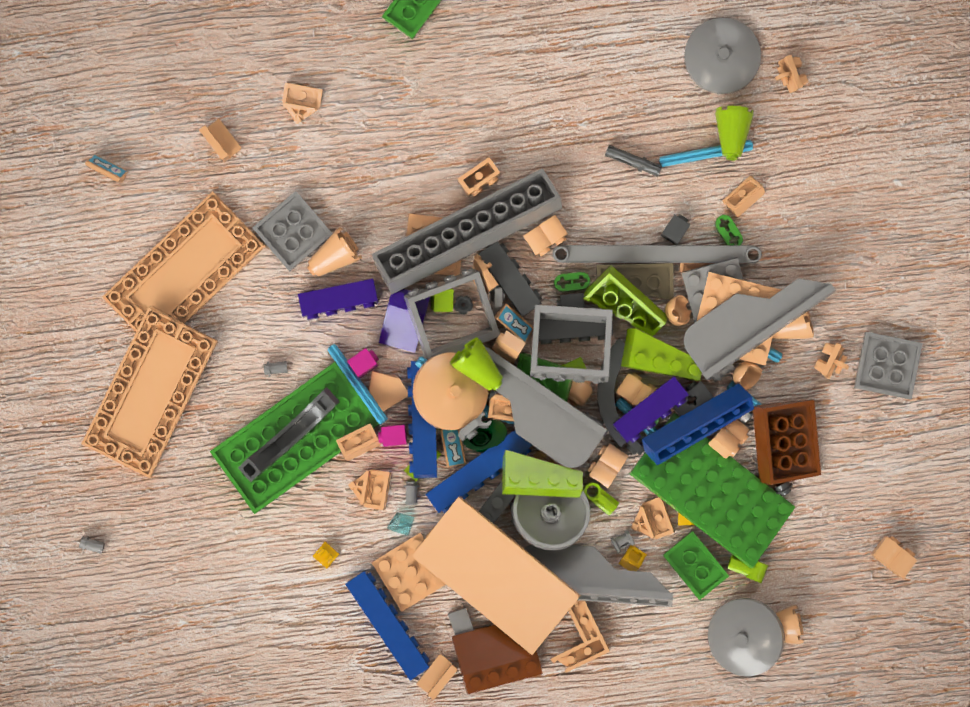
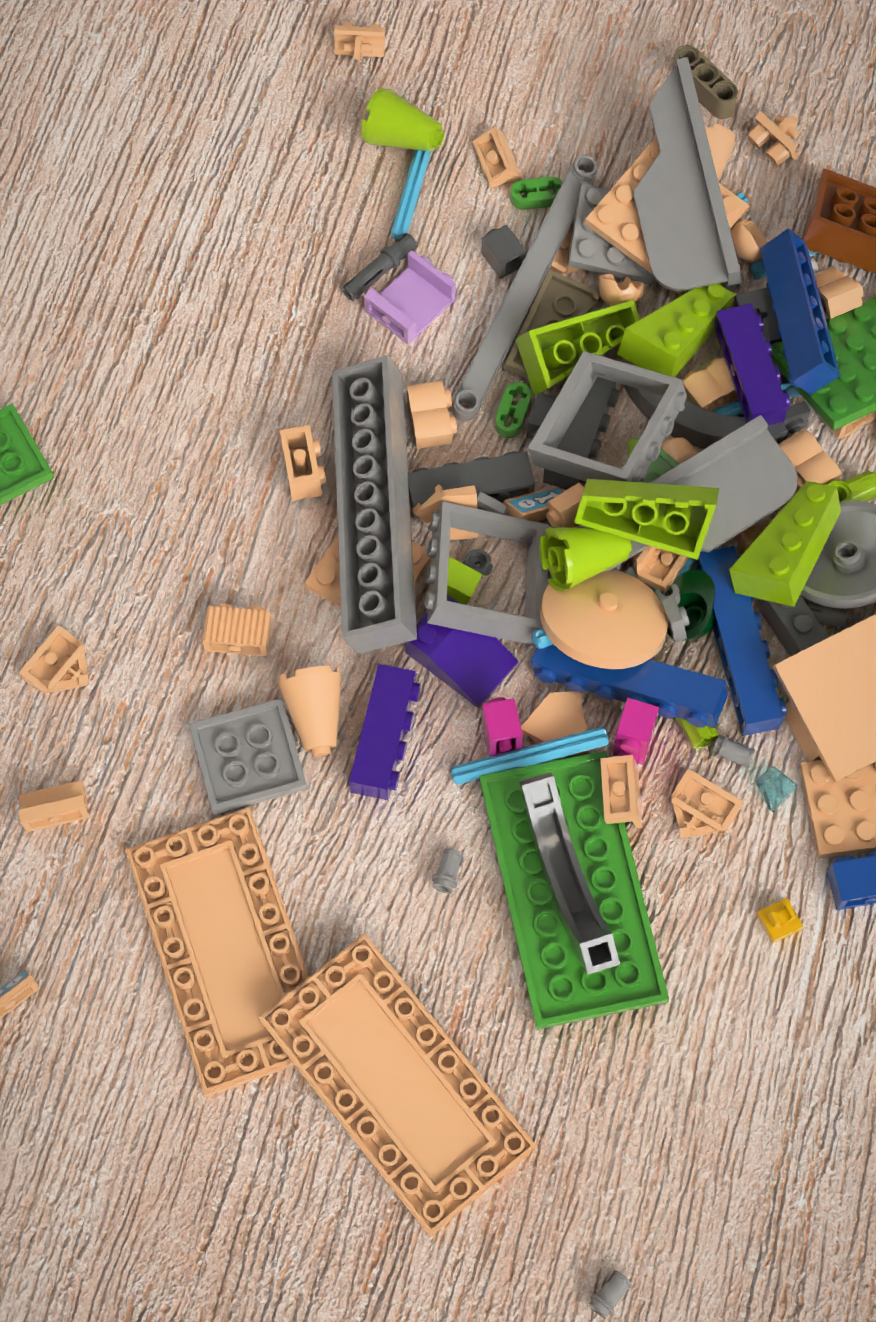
camera: 65 degrees left, 20 degrees down
(362, 190) = (237, 630): none -> light nougat brick
(452, 448) = (689, 660): slope -> none
(513, 391) = (650, 513): none -> lime wedge
(619, 189) = (412, 299): none -> lavender panel
(722, 55) = (292, 112): light grey dish -> none
(848, 307) = (713, 88): none -> dark tan beam
(888, 365) = (811, 78): light grey plate -> none

